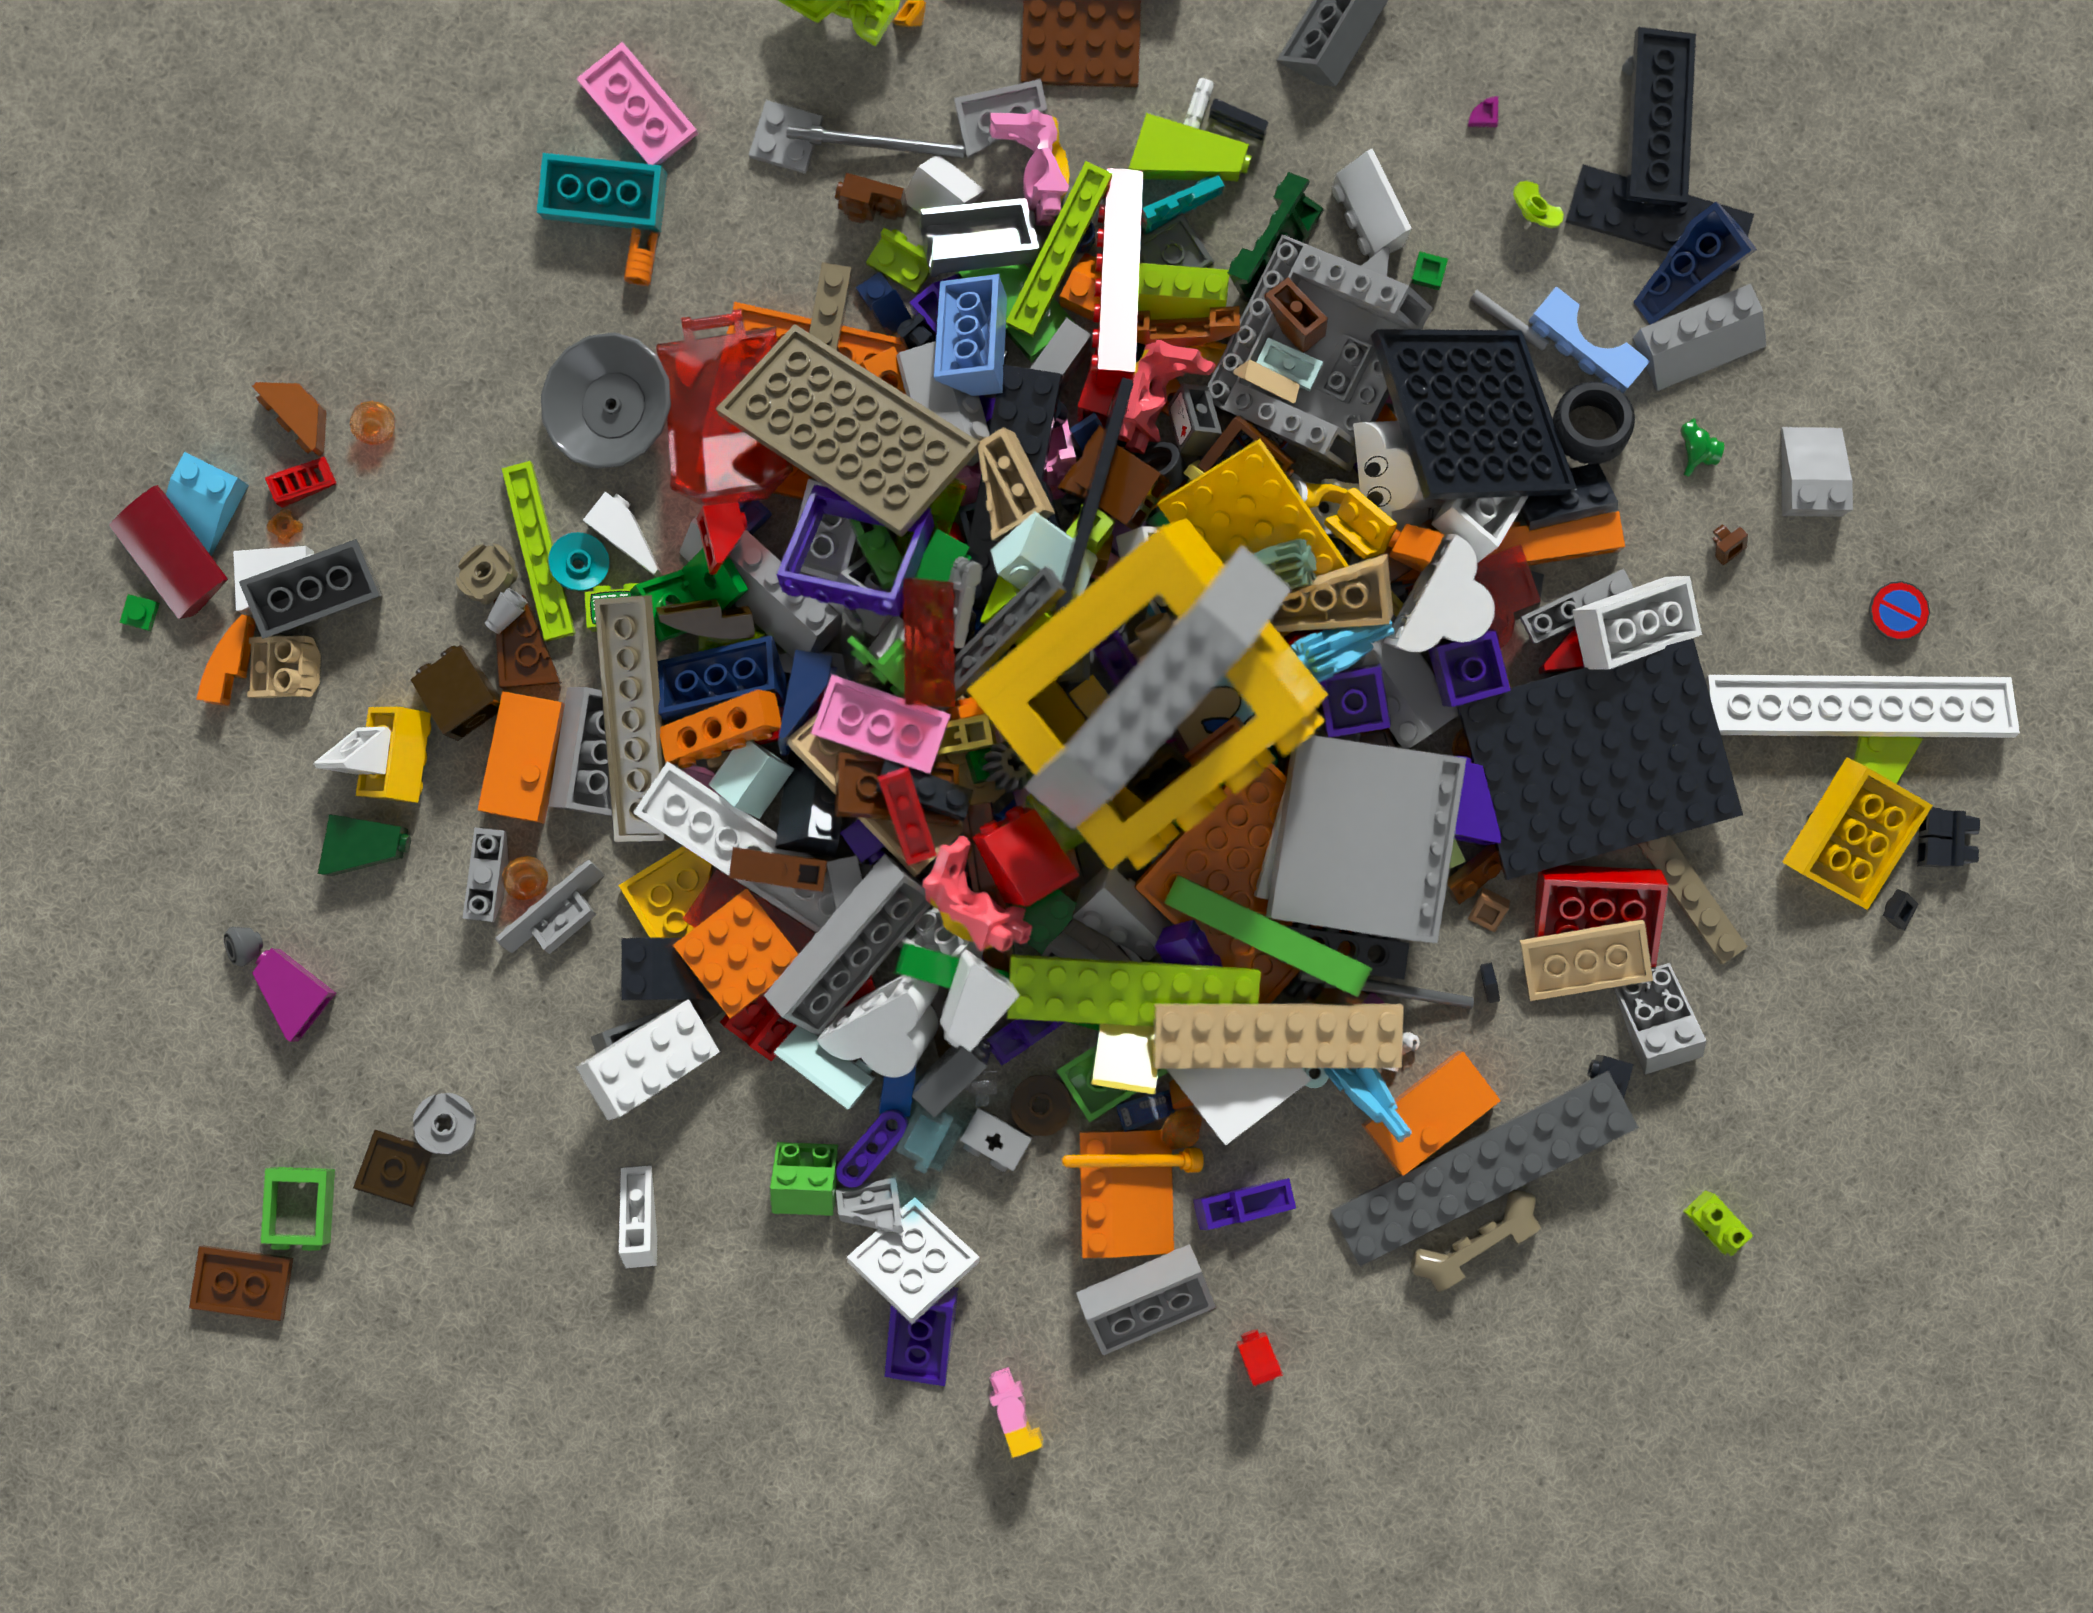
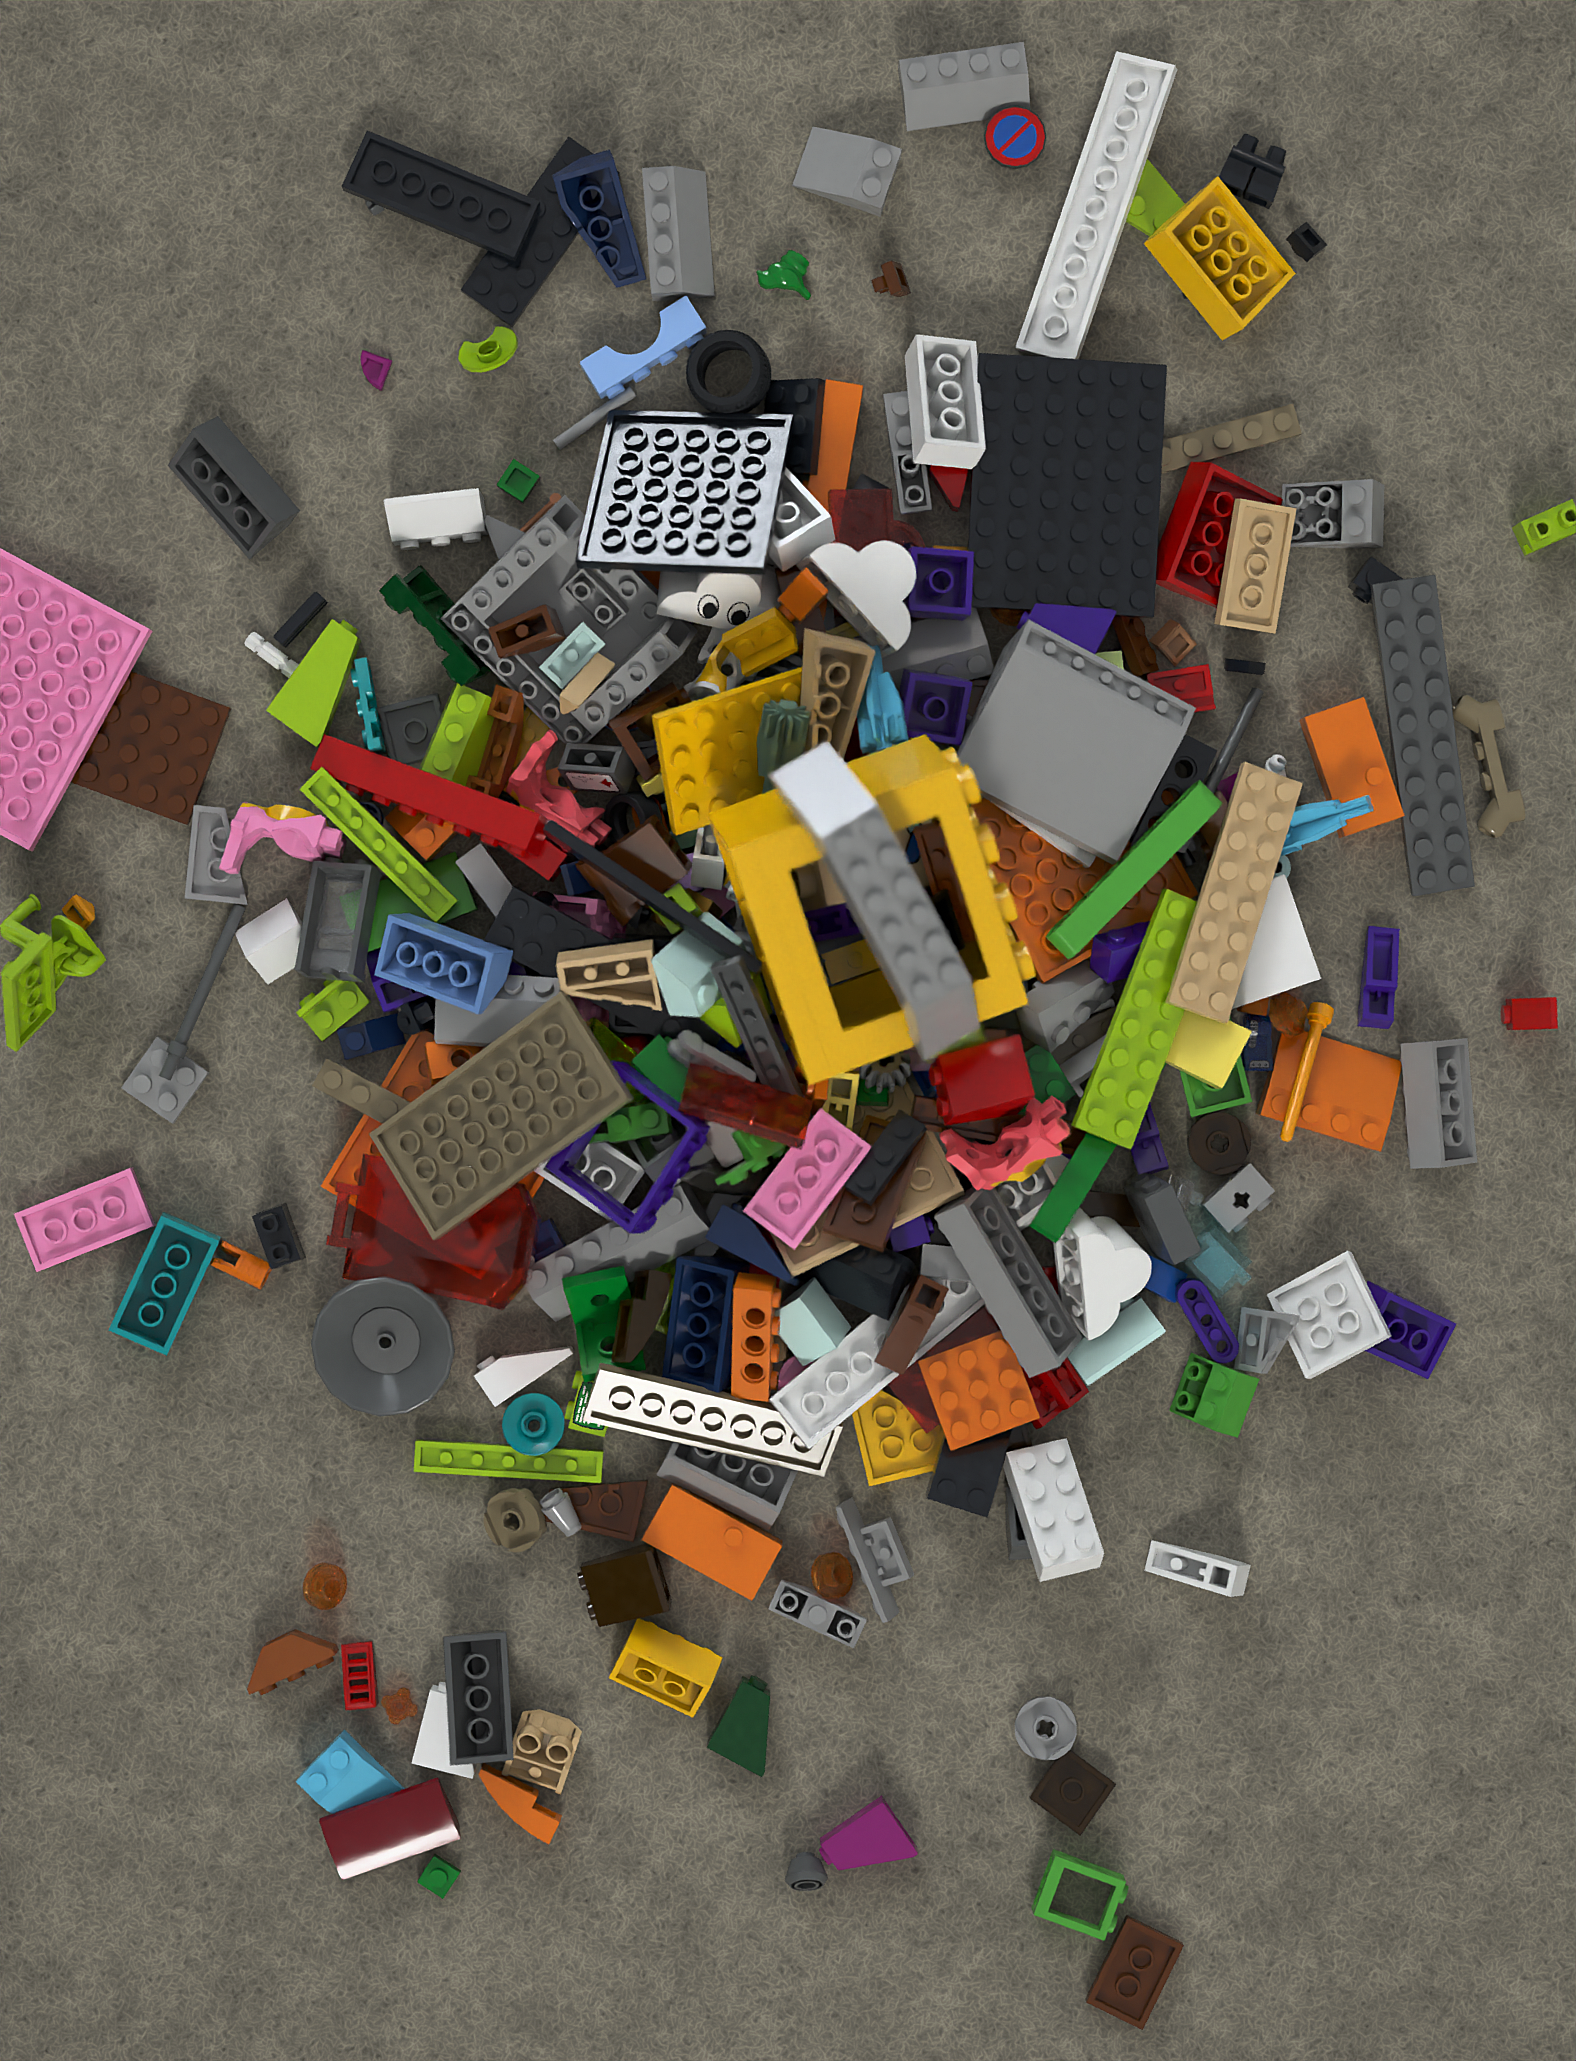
camera: 70 degrees left, 5 degrees up
(359, 752) = (654, 1699): white slope -> none
(674, 276) = (276, 1236): none -> black hips
(720, 532) = (560, 1274): red slope -> none
(863, 197) = (259, 1024): reddish brown plate -> none
(907, 816) = (907, 1182): red plate -> none
(975, 1001) = (1107, 1175): white slope -> none
(1012, 1414) = (1494, 1265): bright pink hips -> none
(1454, 937) = (1187, 684): none -> red plate
(1929, 548) = (963, 85): none -> light grey slope

